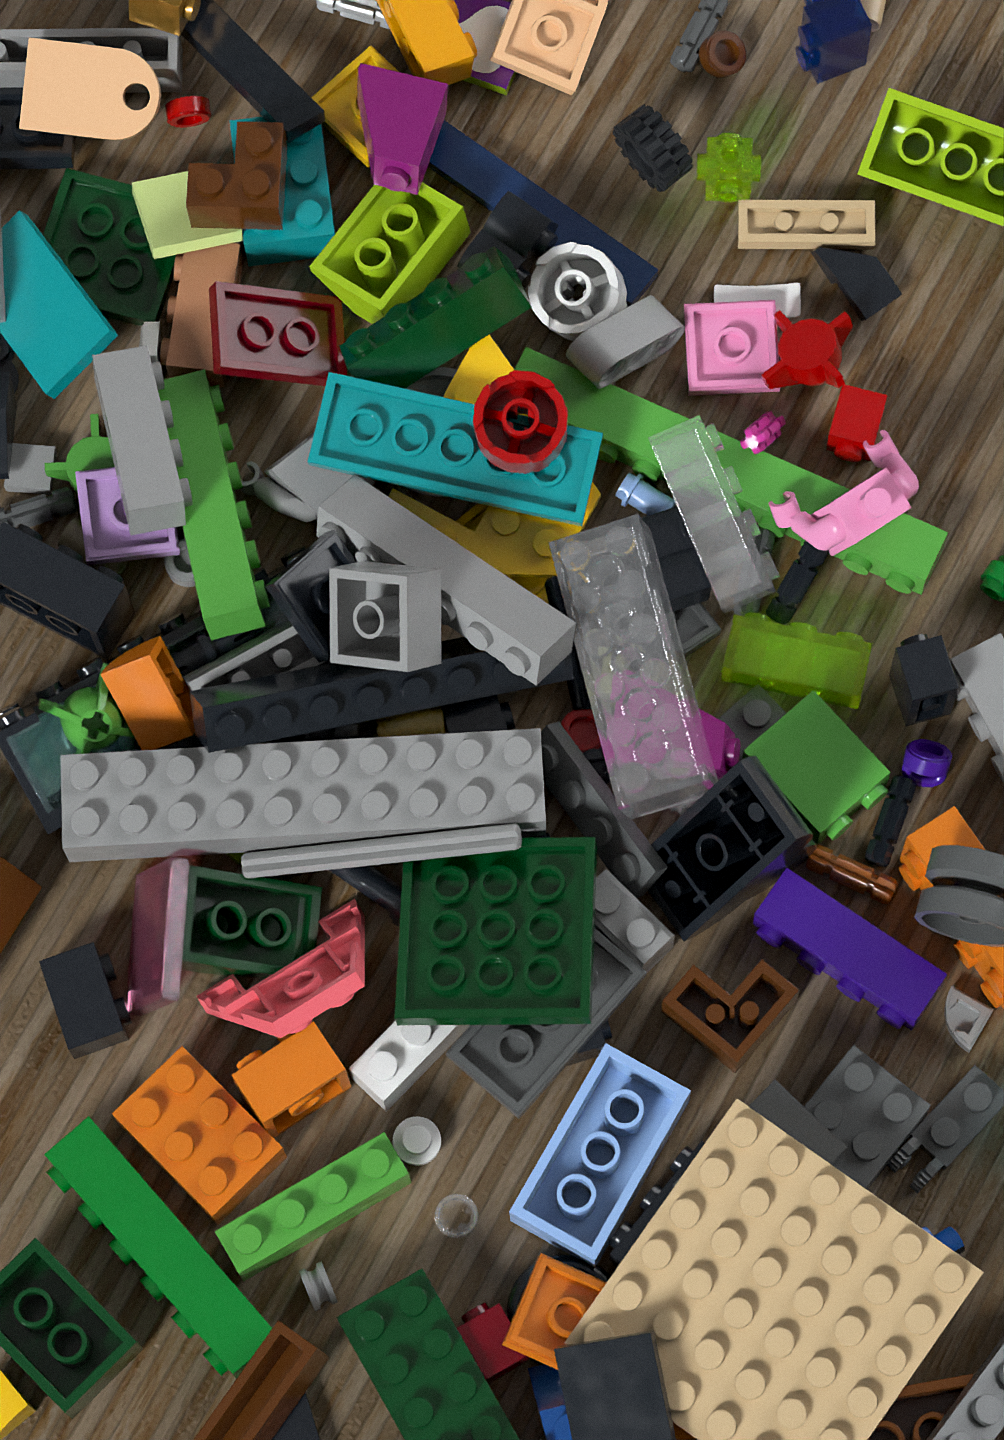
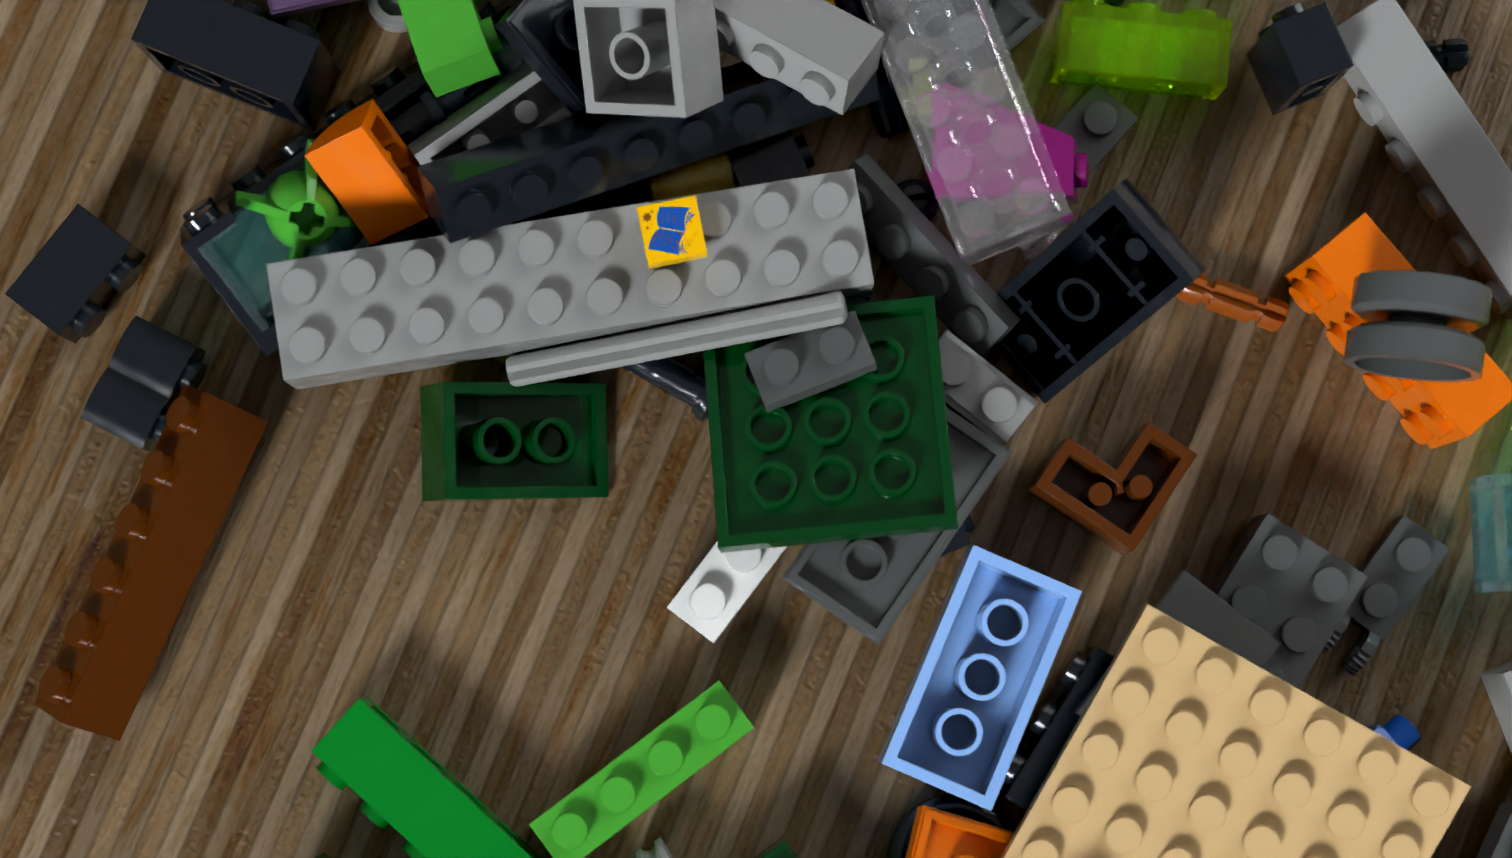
camera: 15 degrees left, 10 degrees up
(84, 999) = (338, 551): black brick -> none
(157, 936) = (416, 468): clear pink tile -> none
(200, 1135) = (494, 703): orange brick -> none
(291, 1079) = (596, 627): orange brick -> none
(303, 988) = (601, 517): coral wing -> none
(386, 761) = (672, 232): none -> yellow tile
(417, 1140) = (756, 678): white plate -> none
(450, 1203) = (823, 777): clear bush -> none
(487, 879) = (810, 362): none -> dark grey plate
(582, 729) = (897, 158): red tile -> none
(820, 767) = (1185, 172): bright green brick -> none
(848, 949) = (1242, 394): dark purple brick -> none
(890, 821) = (1270, 231): black axle -> none
(926, 762) = (1307, 153): dark purple tile -> none
(965, 1017) = (1383, 458): light grey tile -> none

